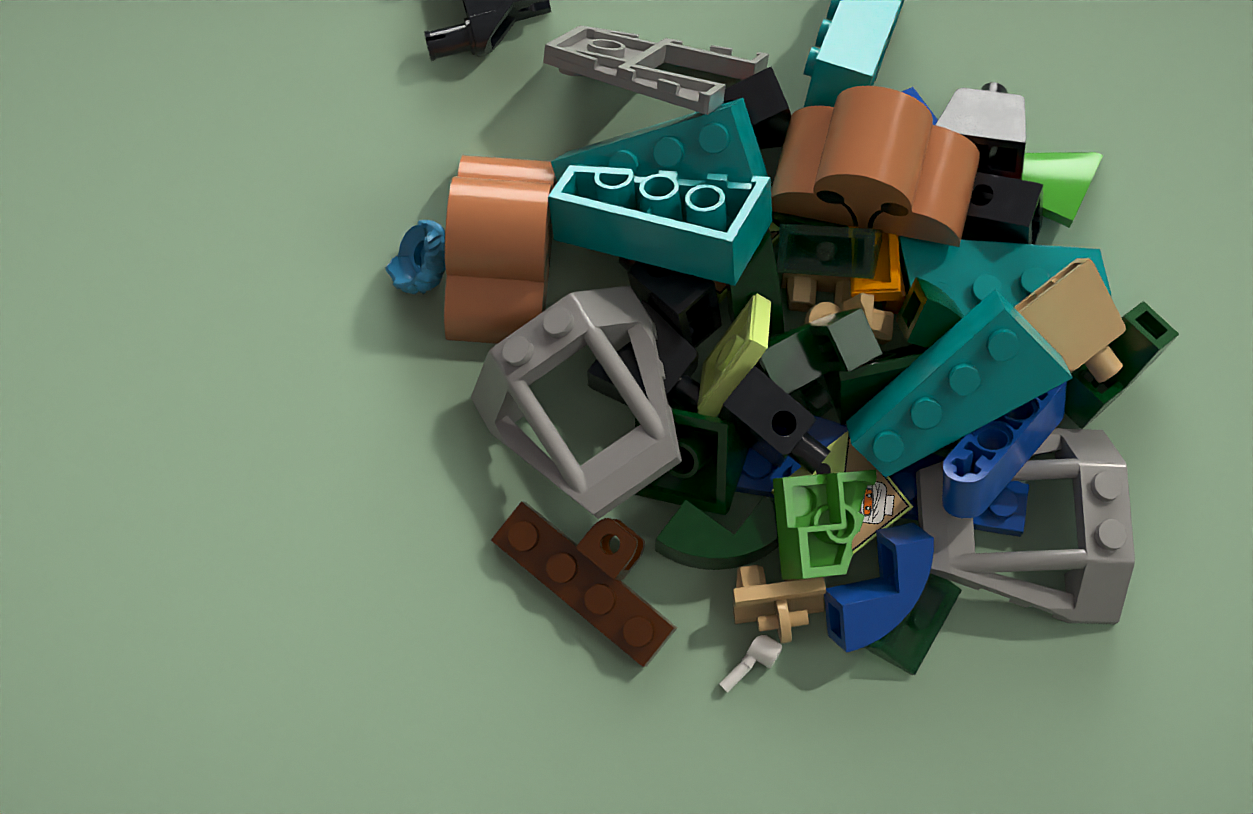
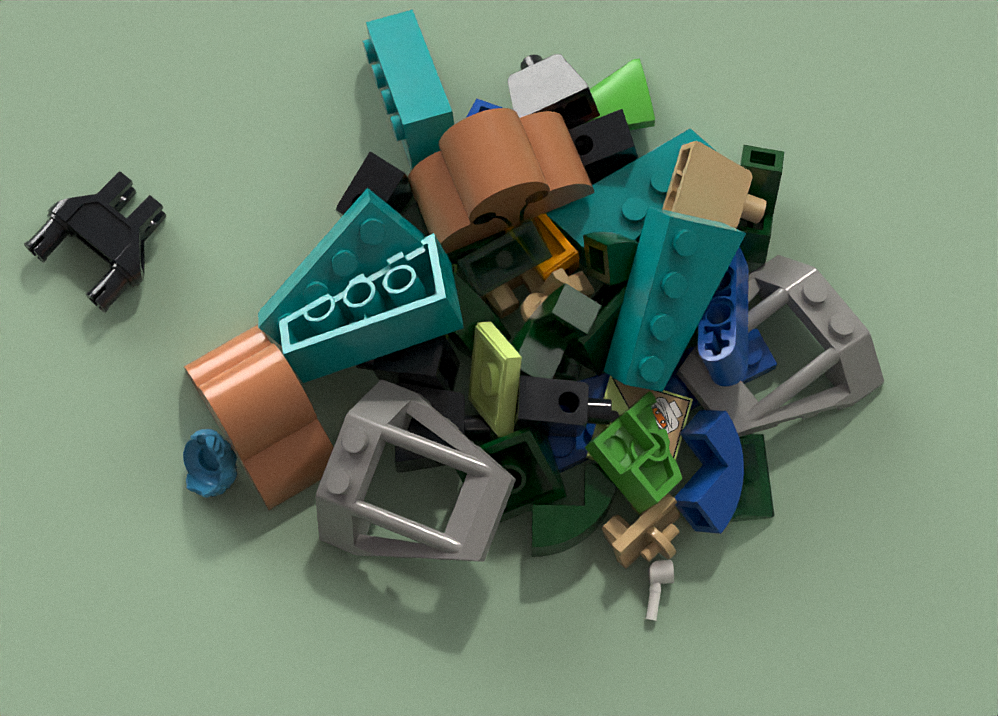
camera: 35 degrees left, 0 degrees up
(589, 577) = (501, 609): reddish brown plate -> none
(631, 64) = (256, 216): light grey wing -> none

